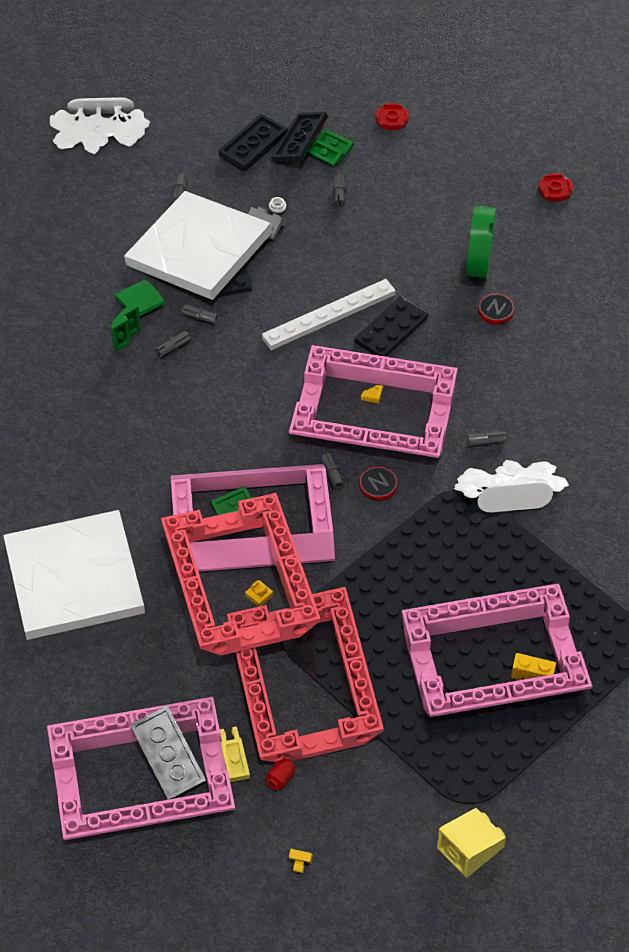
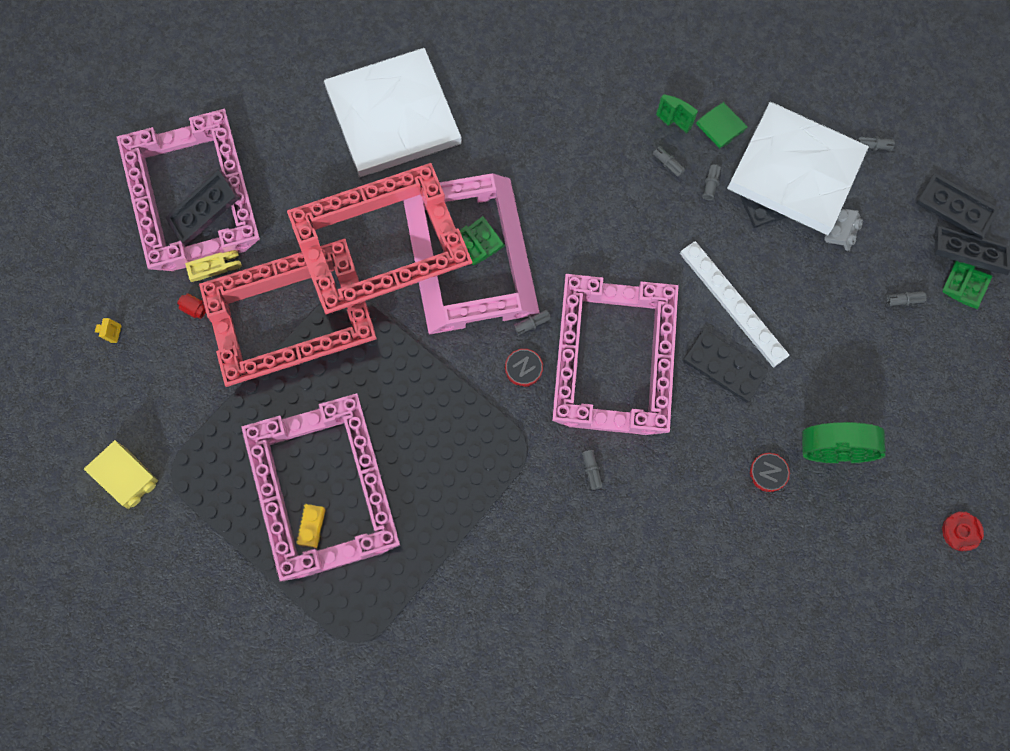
camera: 80 degrees right, 20 degrees up
(95, 129) = (940, 55): white plant -> none
(259, 593) = (384, 266): yellow tile -> none
(277, 205) = (875, 236): white plate -> none
(372, 394) = (635, 354): yellow tile -> none
(512, 486) = (539, 497): white plant -> none

